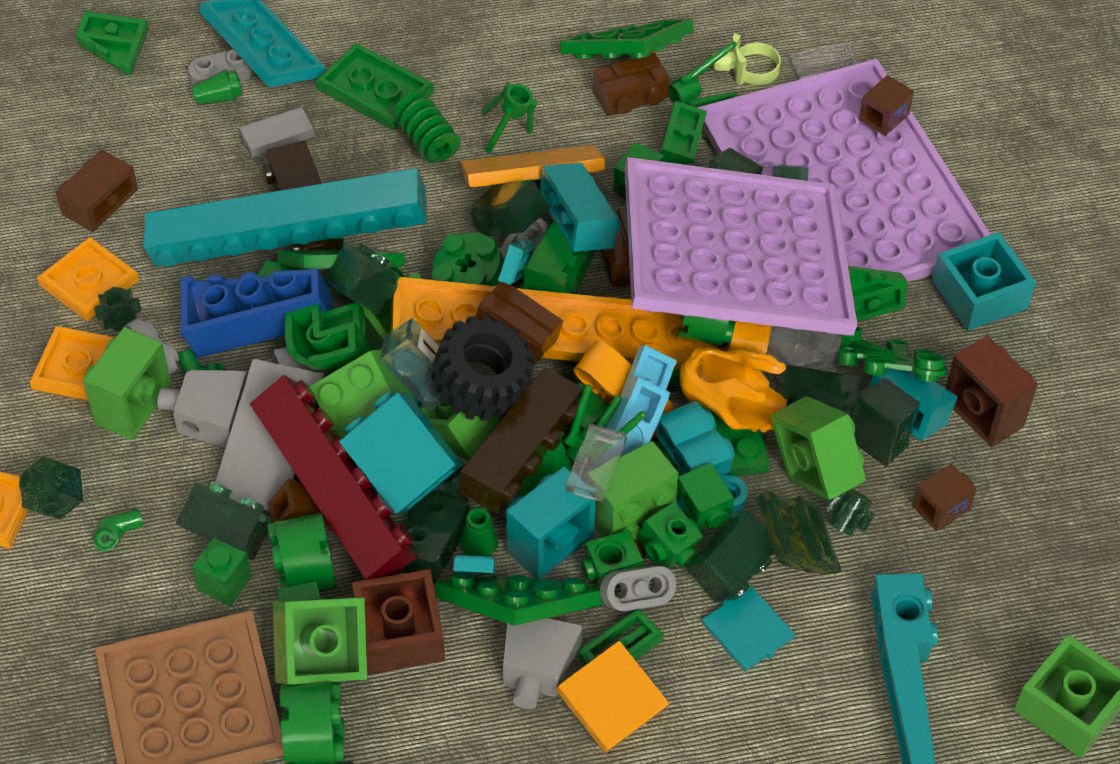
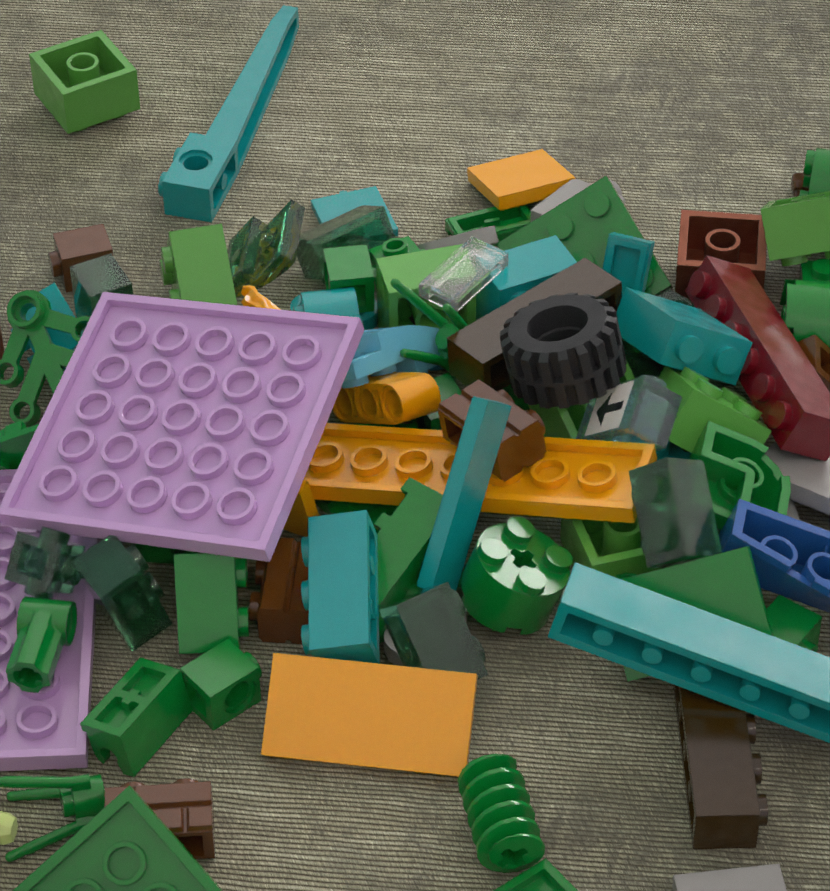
camera: 160 degrees left, 10 degrees down
(515, 103) = (362, 761): green plant -> none
(762, 144) = (41, 634): none -> green piece

